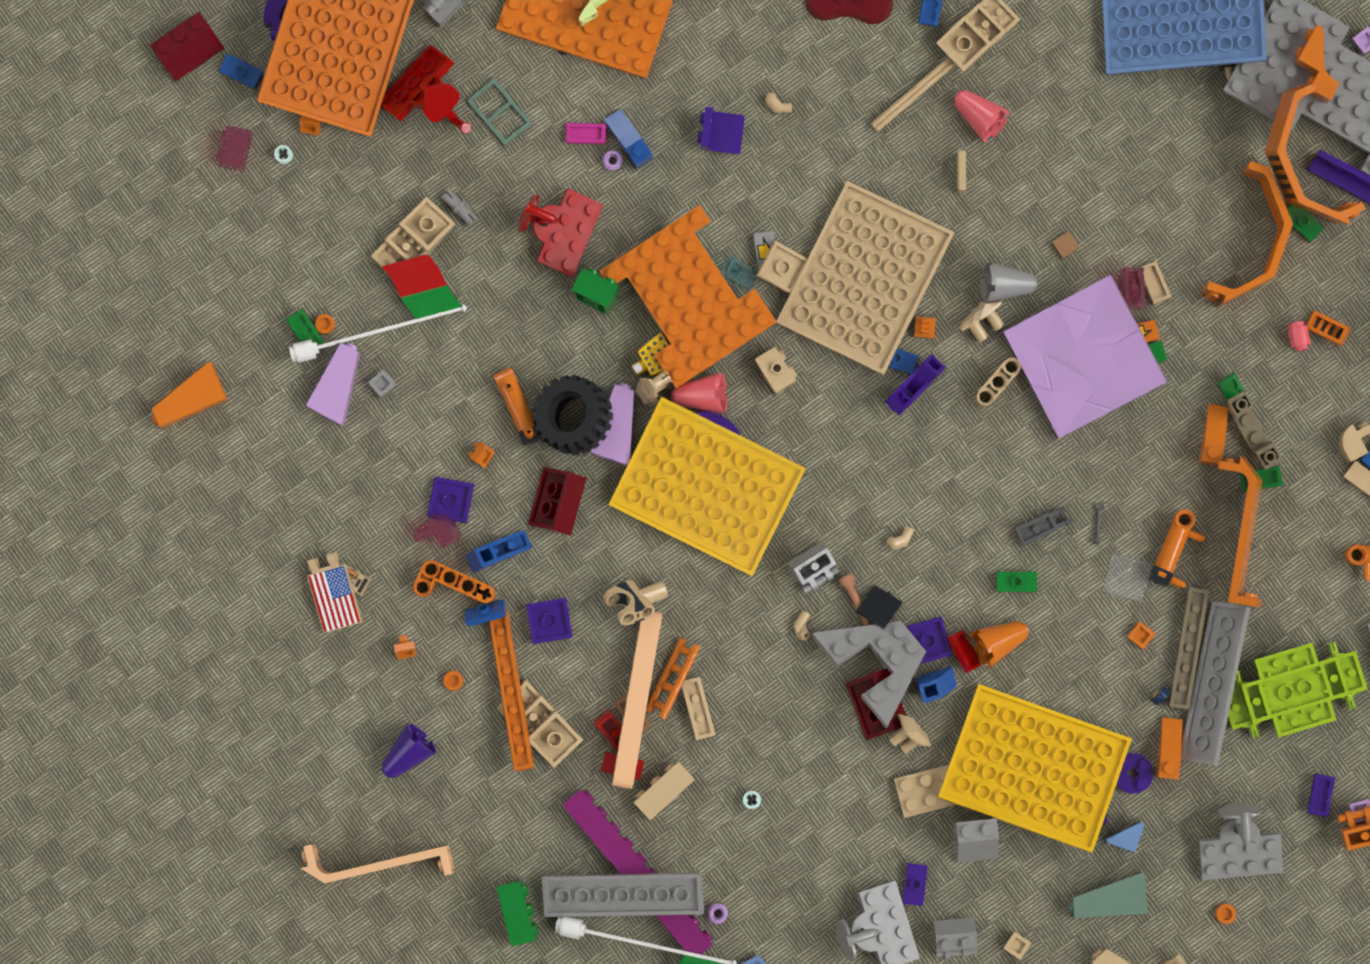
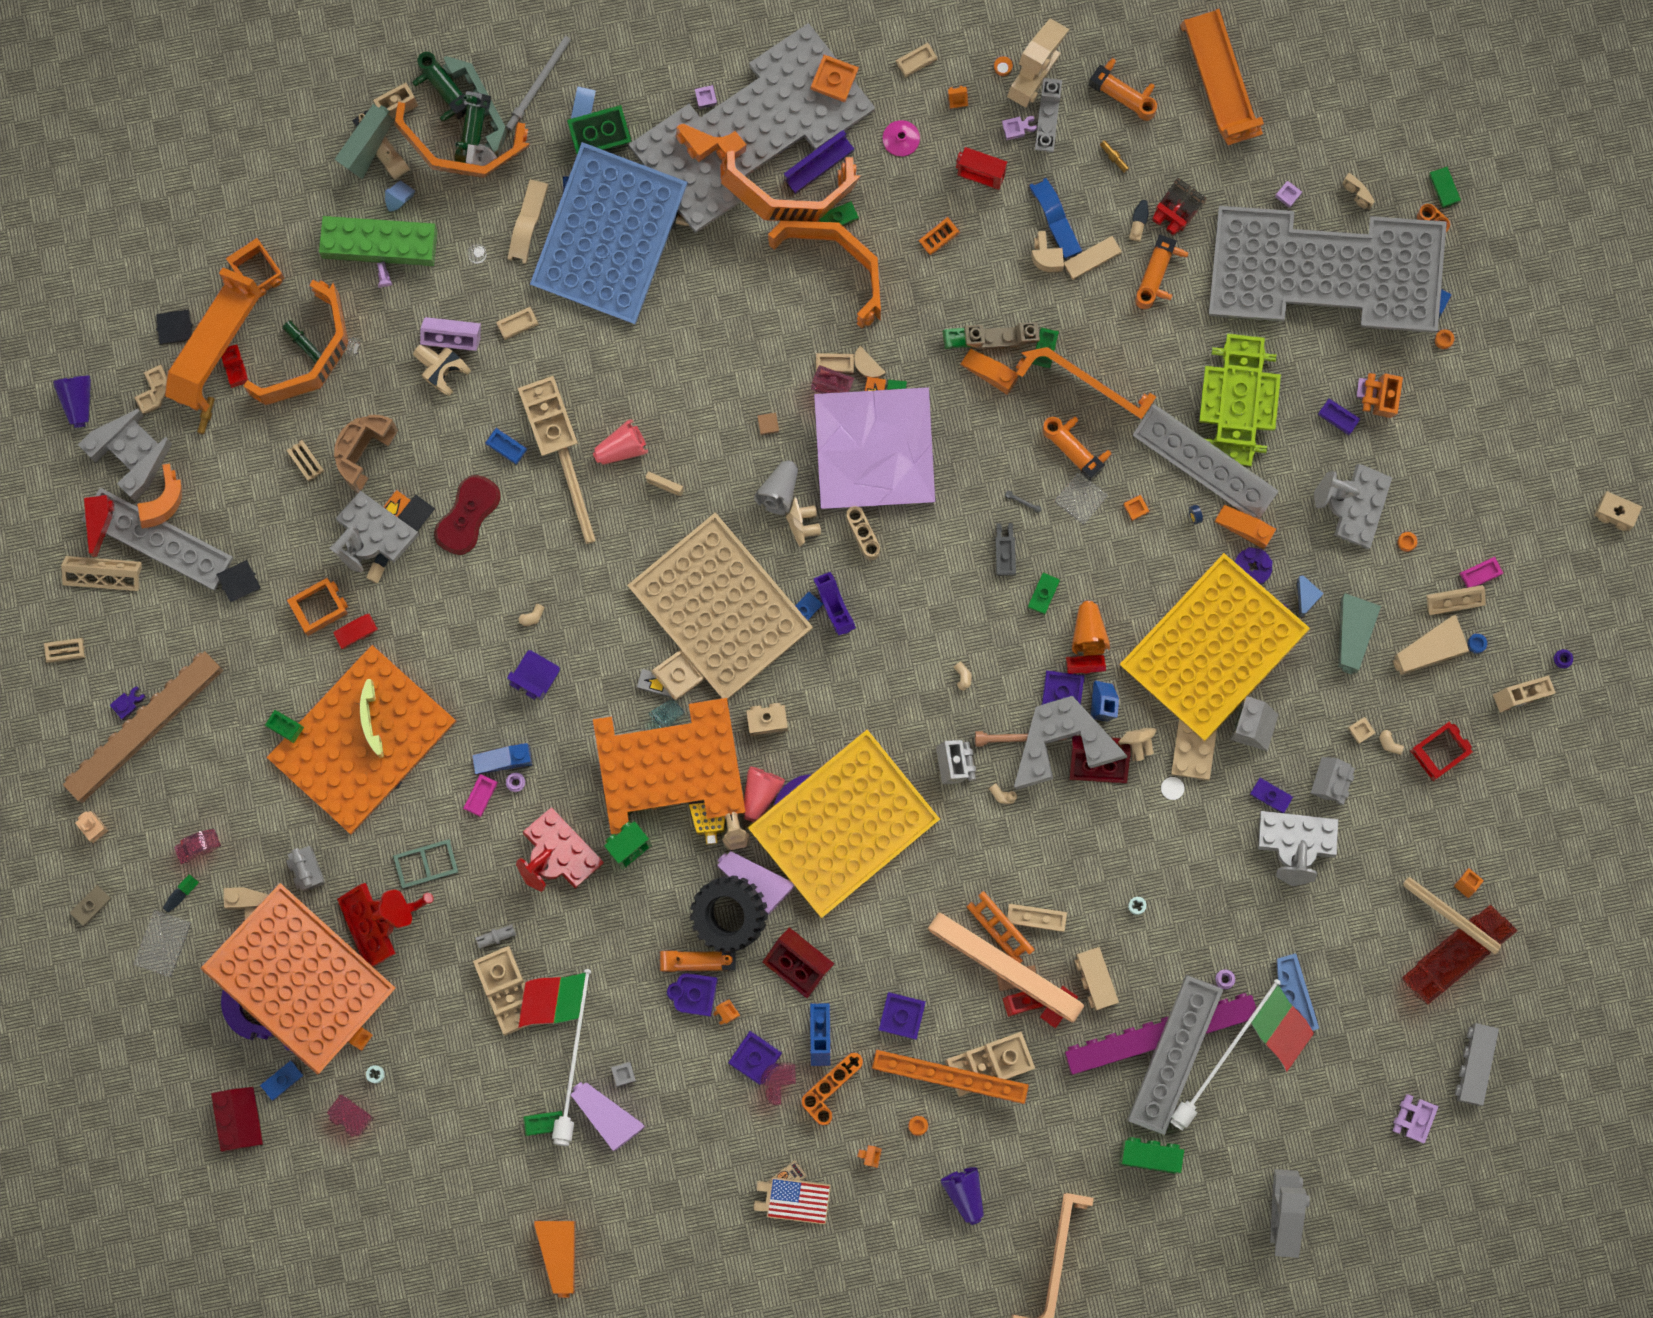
camera: 70 degrees left, 5 degrees down
(324, 324) = (546, 1103): orange tile -> none
(485, 416) = (693, 994): none -> dark purple plate
(485, 613) = (870, 1070): blue plate -> none
(635, 600) = (918, 929): tan connector -> none
(879, 607) = (1015, 720): black piece -> none
(880, 786) = (1172, 788): none -> white sticker
(924, 327) = (786, 575): orange tile -> none
(1166, 314) = (866, 364): none -> tan tile
(1188, 648) = (1165, 472): dark tan plate -> none
(1298, 336) = (935, 262): coral brick -> none

